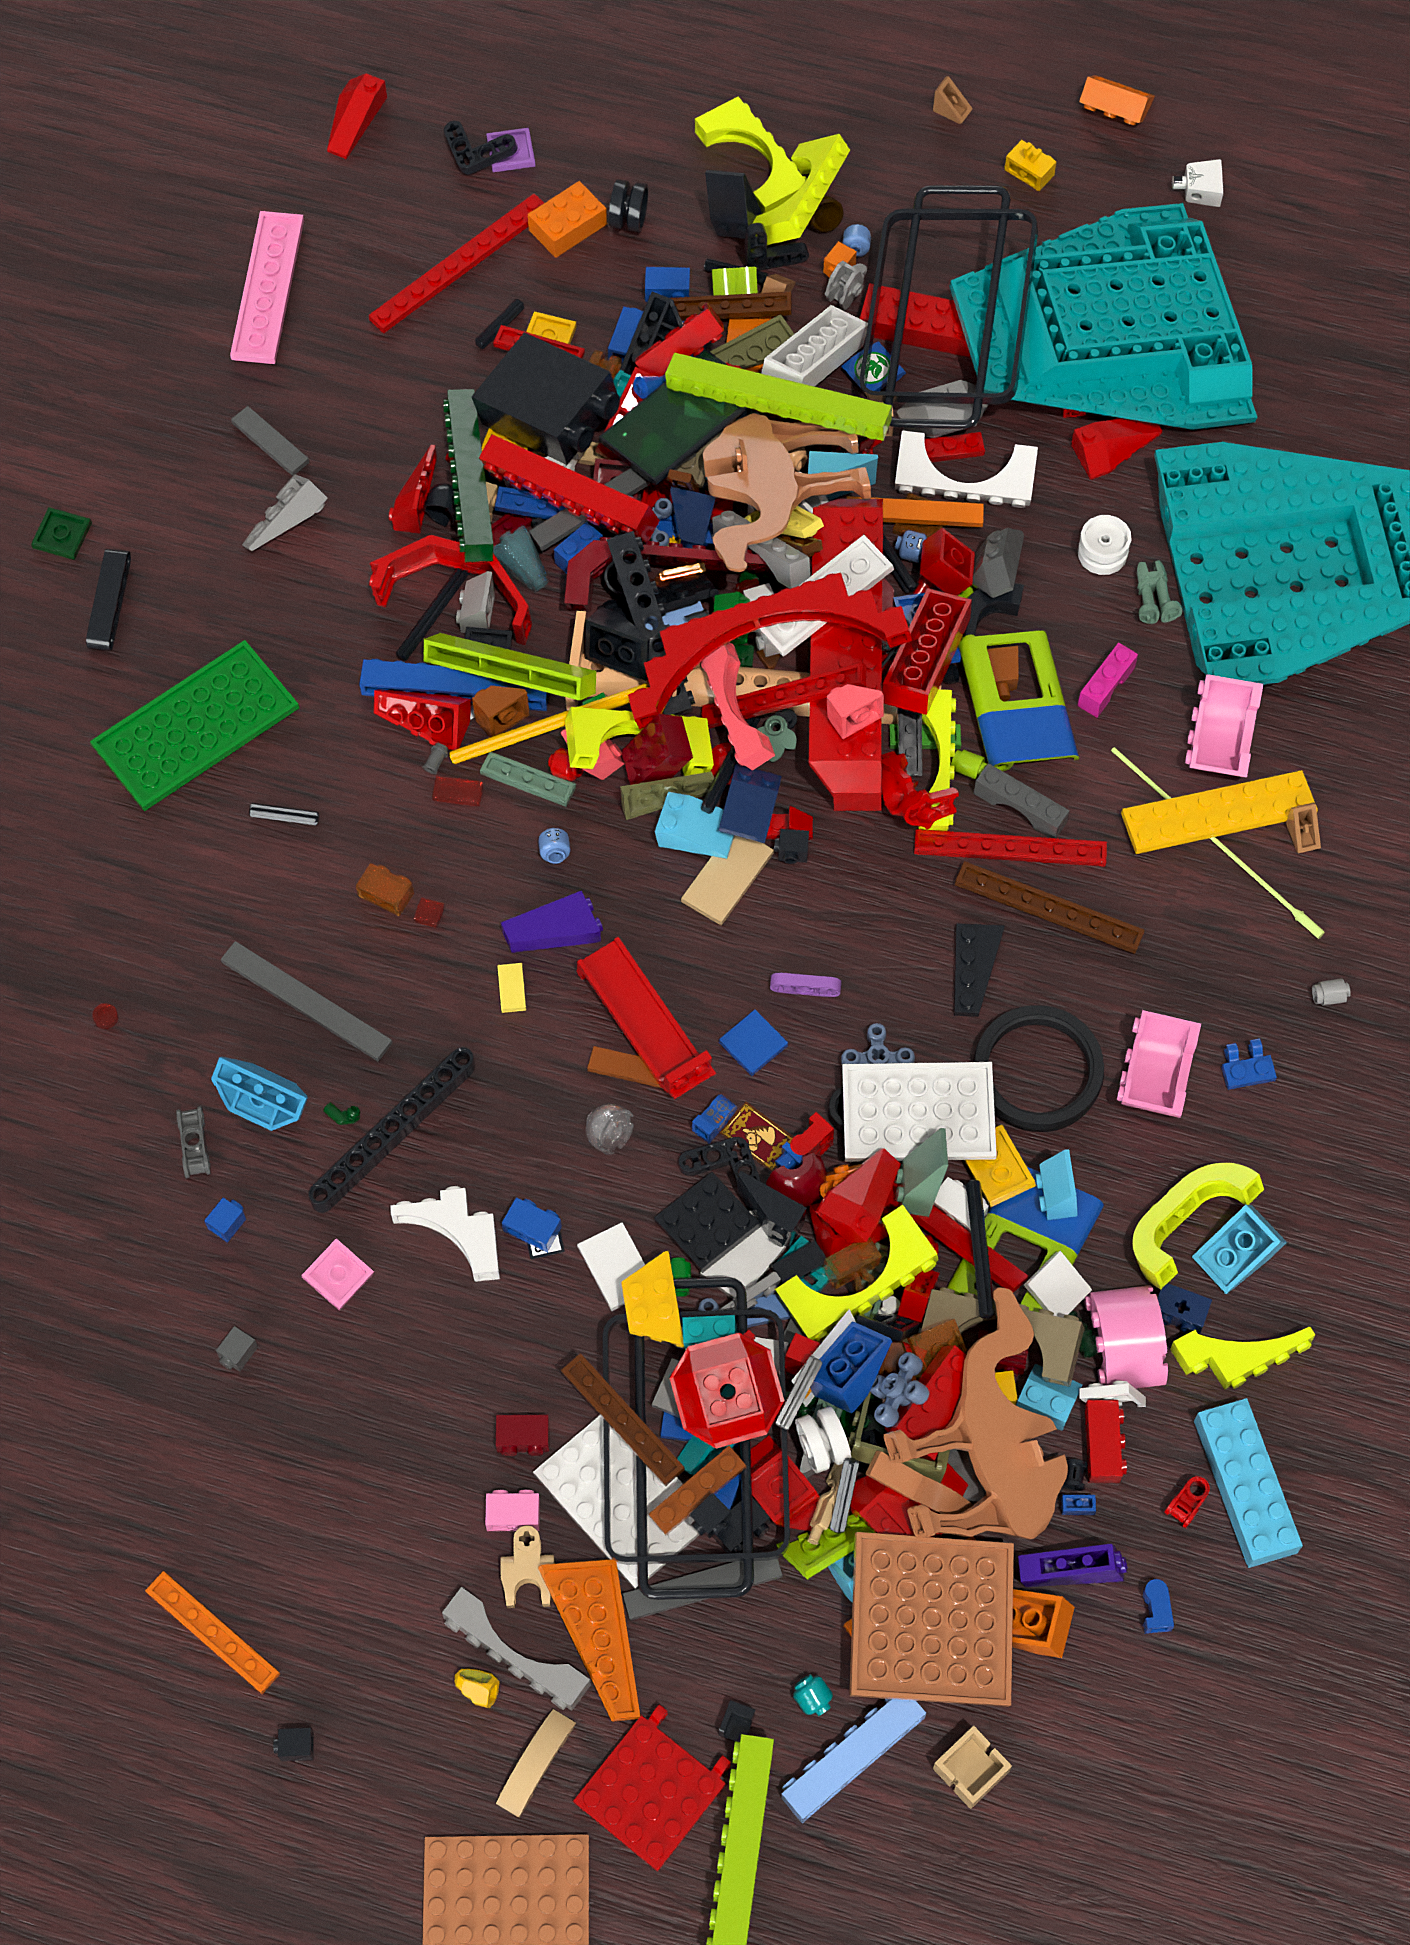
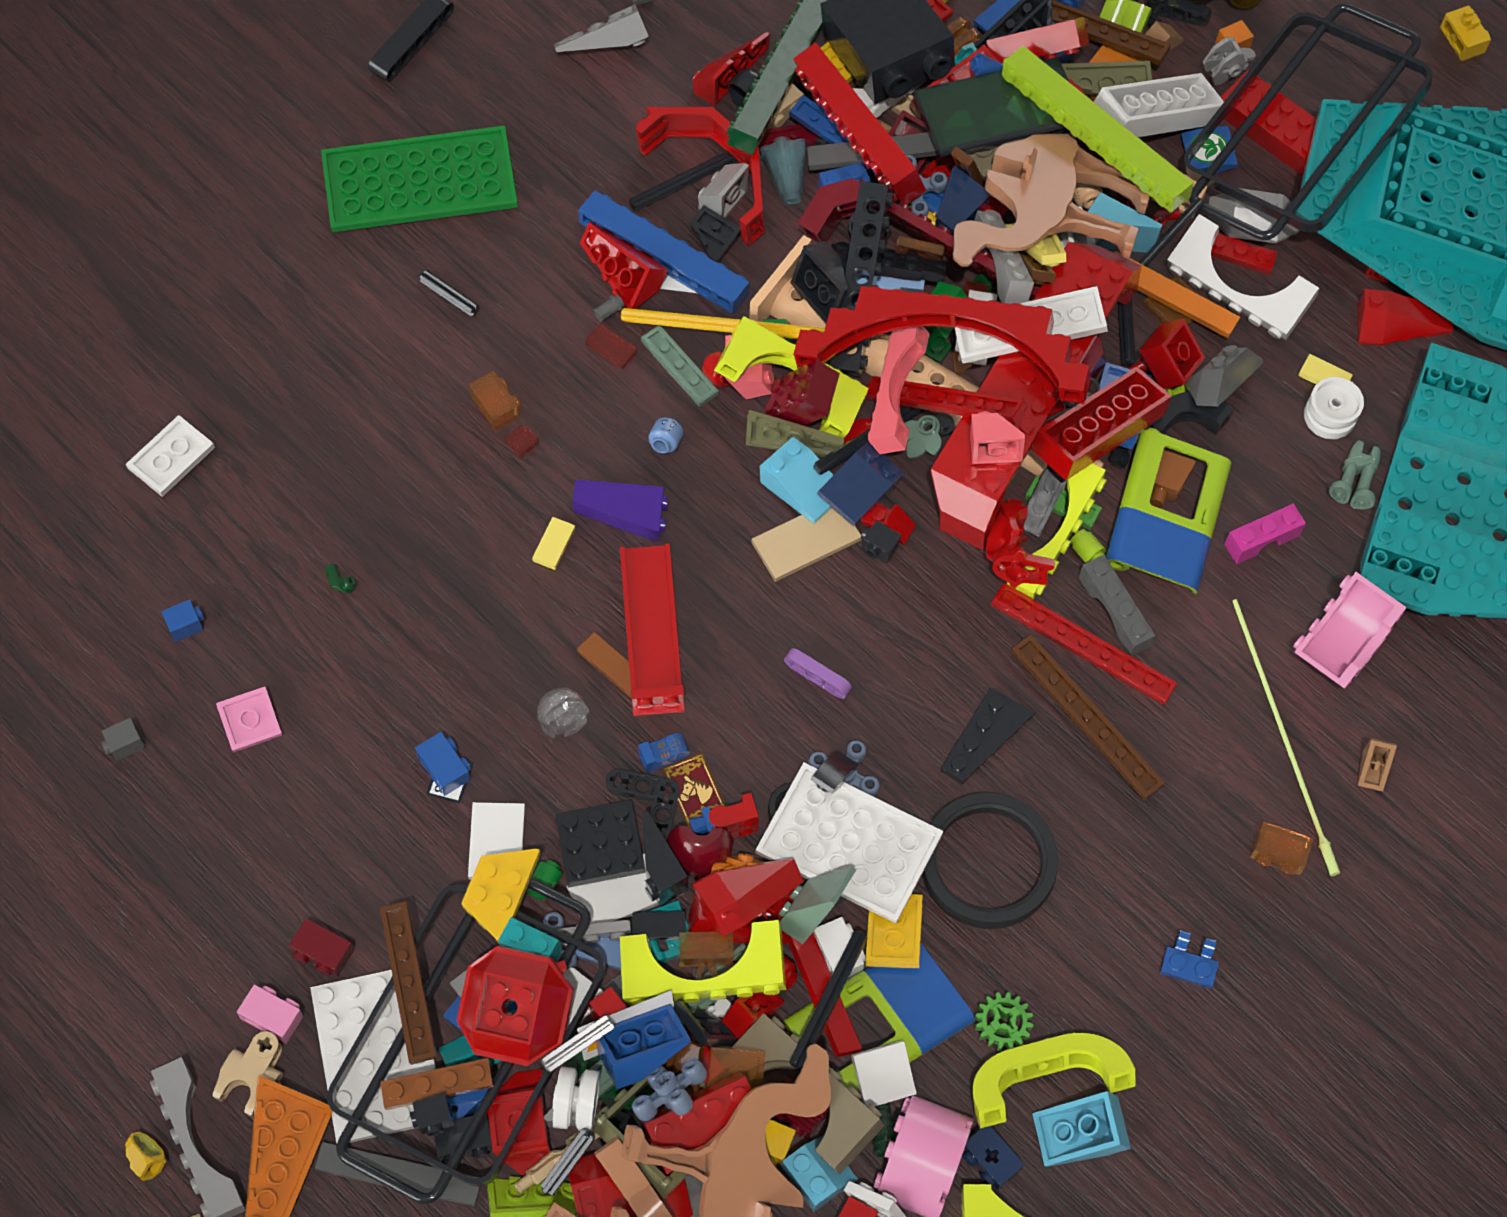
camera: 25 degrees right, 0 degrees up
(105, 1016) = (192, 392): clear red tile -> none
(122, 1081) = (170, 455): none -> white plate
(192, 1125) = (202, 523): dark grey piece -> none
(258, 1093) = (276, 523): dark azure wedge -> none
(306, 1001) = (369, 466): dark grey tile -> none
(389, 1140) = (360, 612): black beam -> none
(450, 1217) = (386, 745): white arch -> none
(500, 708) = (688, 290): dark orange slope -> none
(510, 666) = (715, 256): lime brick -> none
(753, 1042) = (740, 702): blue tile -> none
(857, 238) = (1262, 26): medium blue head -> none
(874, 1059) = (834, 772): none -> black slope
(886, 456) = (1171, 232): none -> black bar
(910, 546) = (1149, 321): medium blue head -> none
(1058, 1187) = (937, 980): medium azure slope -> none
(1074, 518) = (1318, 369): none -> light yellow tile
(1135, 1199) = (1012, 1015): none -> bright green gear
(1159, 1064) = (1102, 916): bright pink cylinder -> none
(1215, 812) = (1299, 707): yellow plate -> none
(1268, 936) = (1281, 848): none -> clear orange brick
(1330, 992) = (1312, 932): light grey brick -> none

